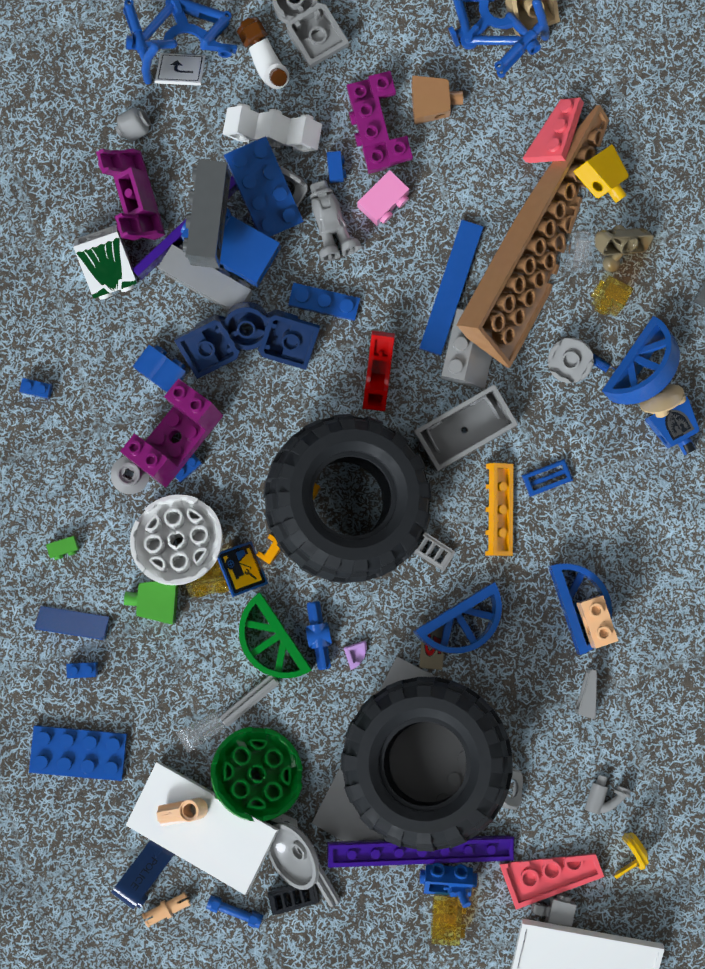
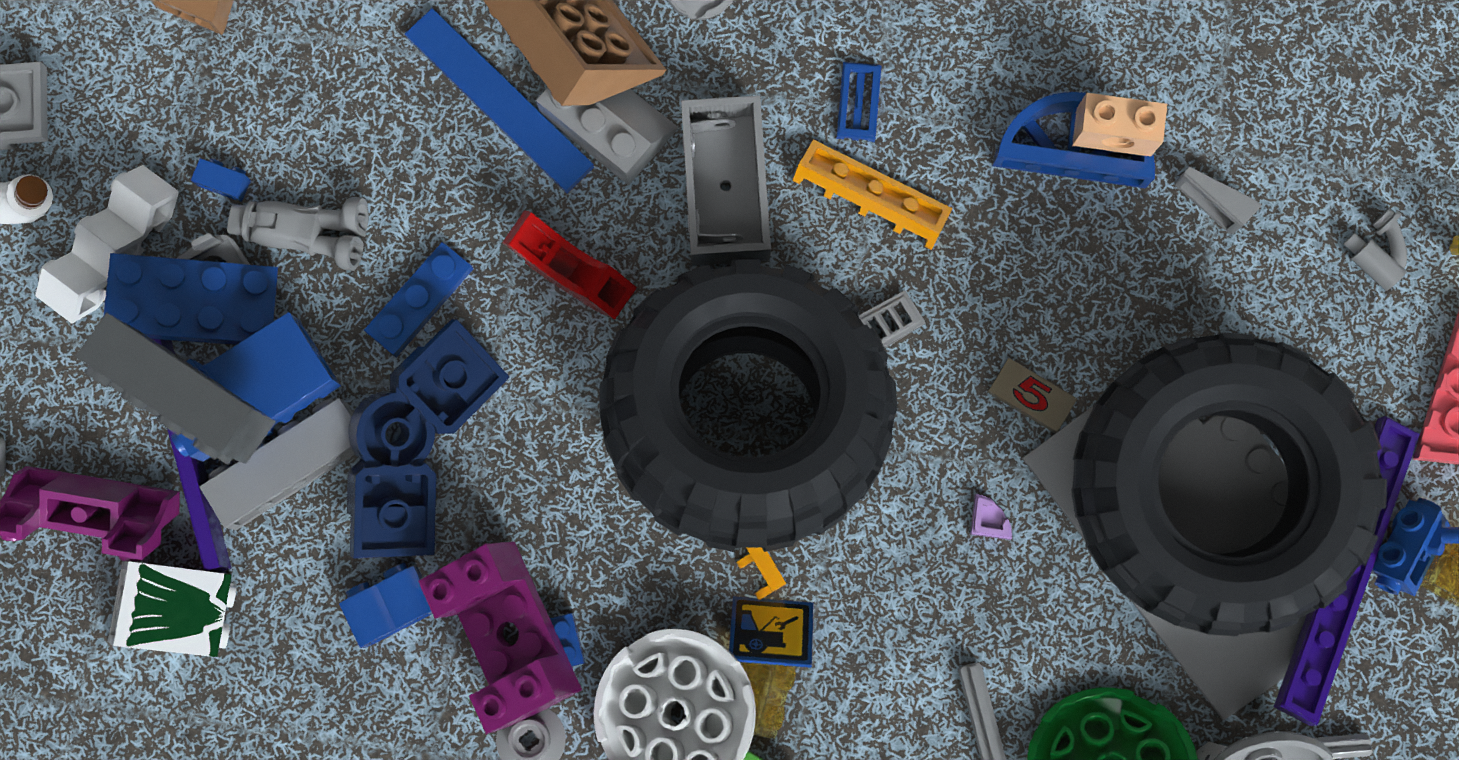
camera: 65 degrees left, 5 degrees down
(275, 626) = (906, 620): green window -> none
(318, 635) = (934, 562): blue axle -> none
(370, 124) = (184, 94): magenta bracket -> none
(384, 198) = (308, 130): bright pink brick -> none
(456, 612) = (999, 333): blue window -> none

